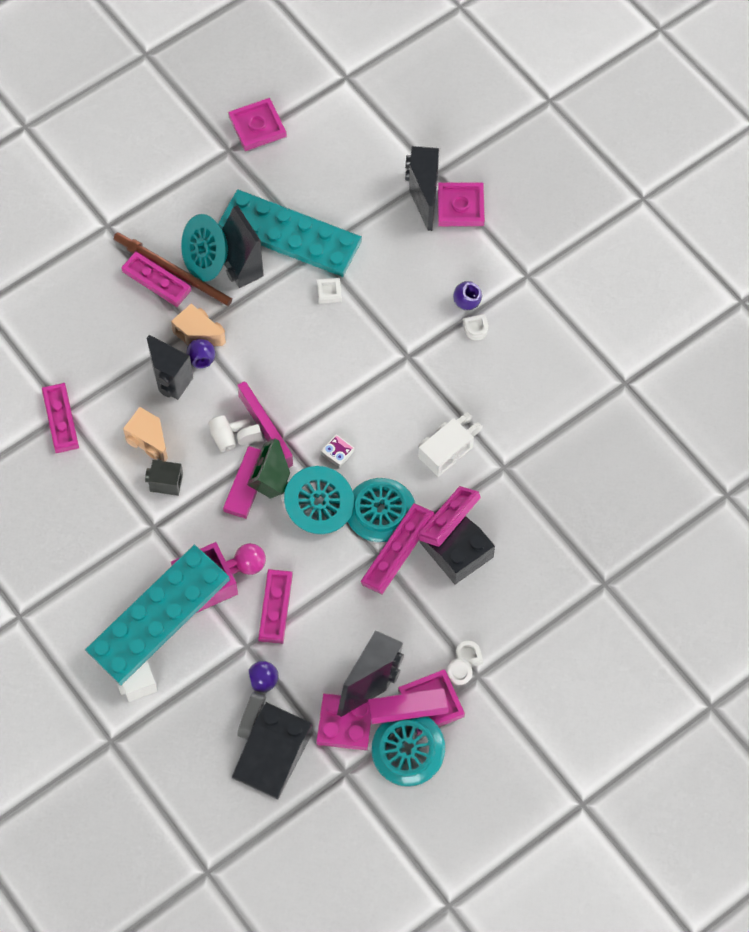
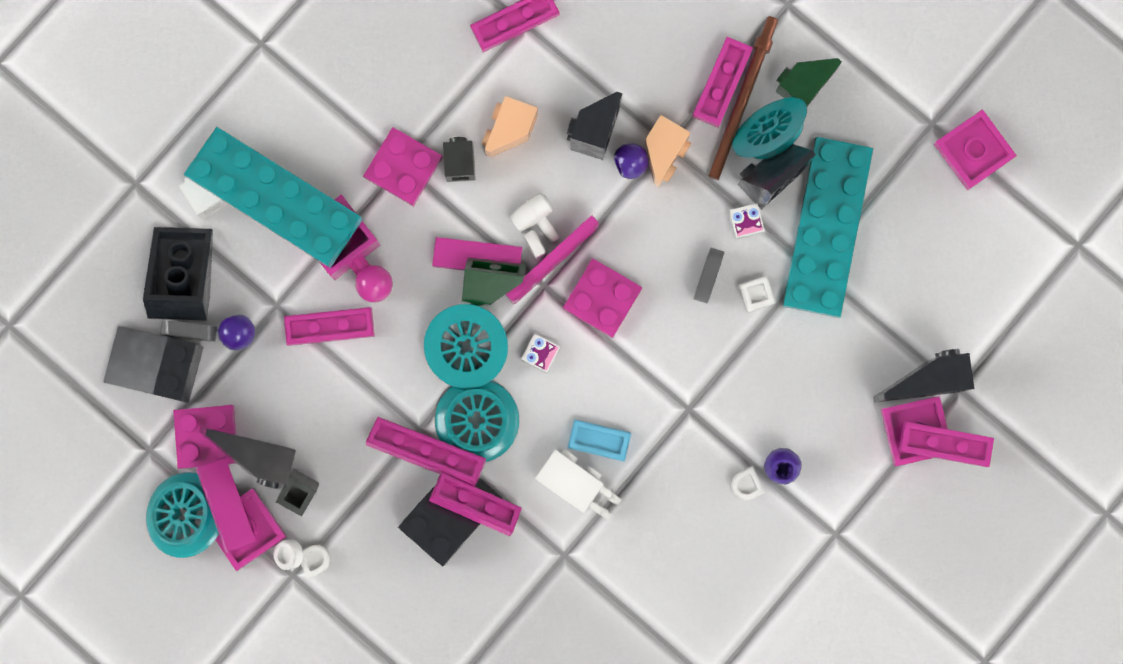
camera: 80 degrees right, 20 degrees up
(157, 524) = (403, 166): none -> dark pink plate
(171, 220) = (806, 79): none -> dark green slope
(201, 713) = (179, 274): none -> black slope
(270, 285) = (746, 221): none -> tile
(304, 398) = (602, 298): none -> dark pink plate
(306, 318) = (708, 275): none -> dark grey beam
(413, 648) = (298, 492): none -> pearl dark grey brick
(417, 422) = (599, 440): none -> medium azure tile
(475, 182) = (946, 444): none -> dark pink plate

